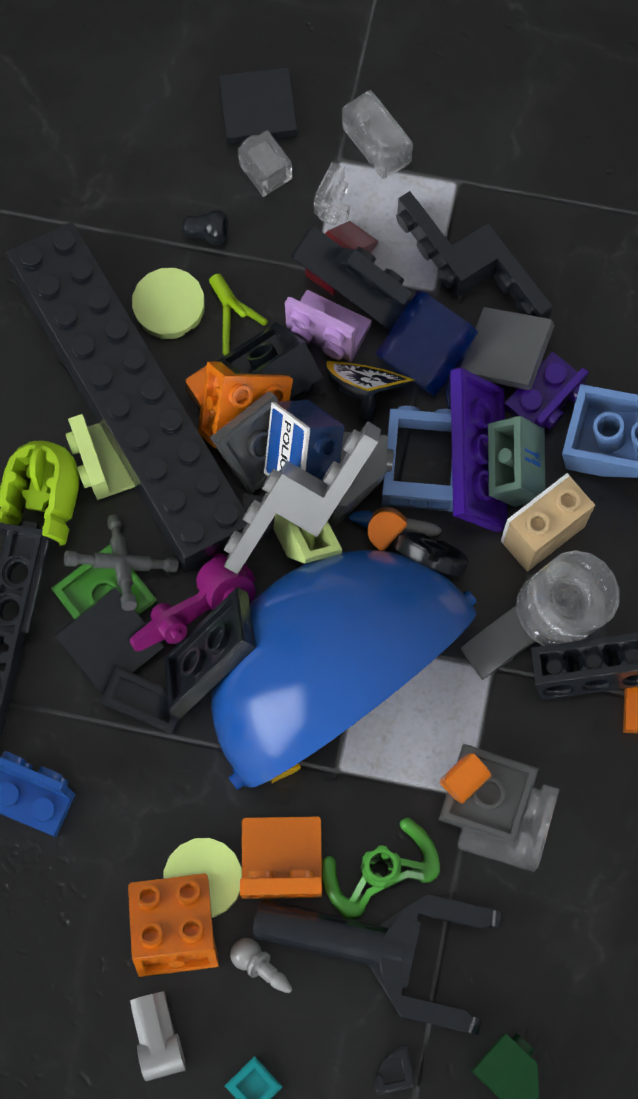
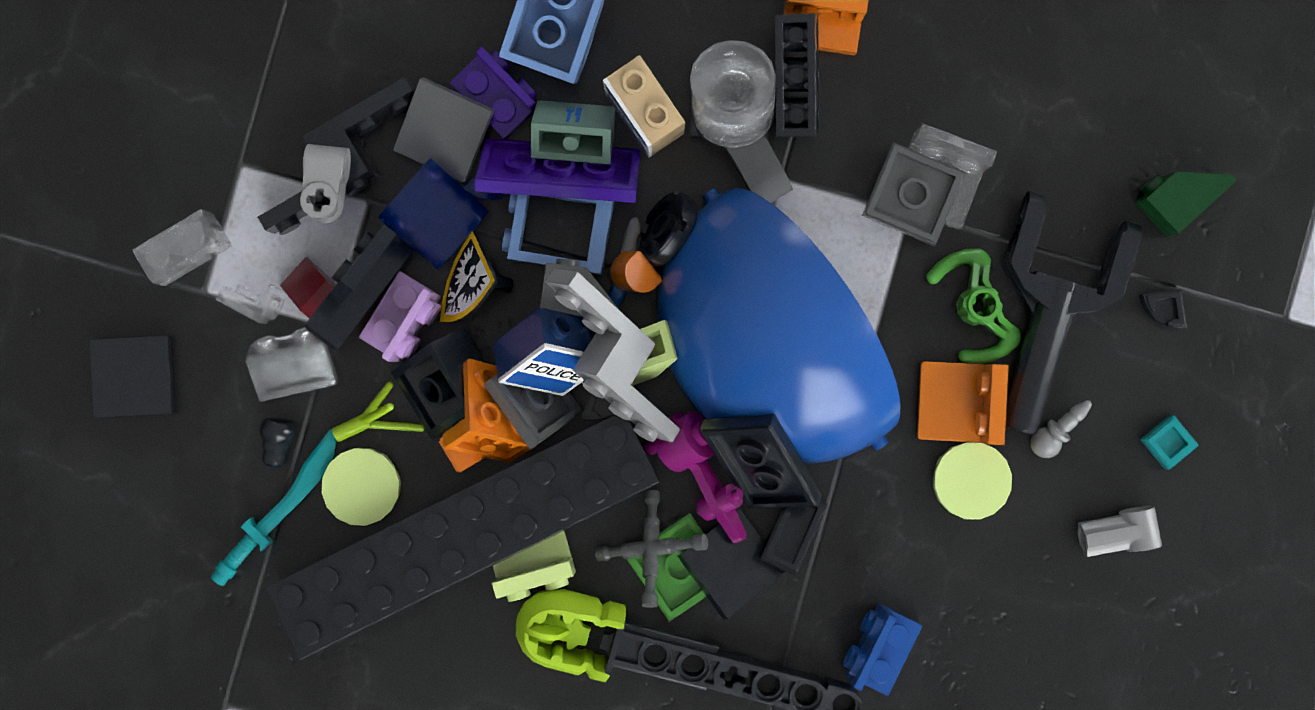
camera: 90 degrees left, 15 degrees up
(121, 218) = (257, 534): none -> teal sword
(171, 925) = (1016, 513): orange bracket -> none
(264, 162) = (205, 373): clear brick -> none
(274, 231) = (289, 365): none -> clear bracket
(449, 241) = (325, 174): none -> light grey piece
(465, 777) = (902, 216): orange brick -> none

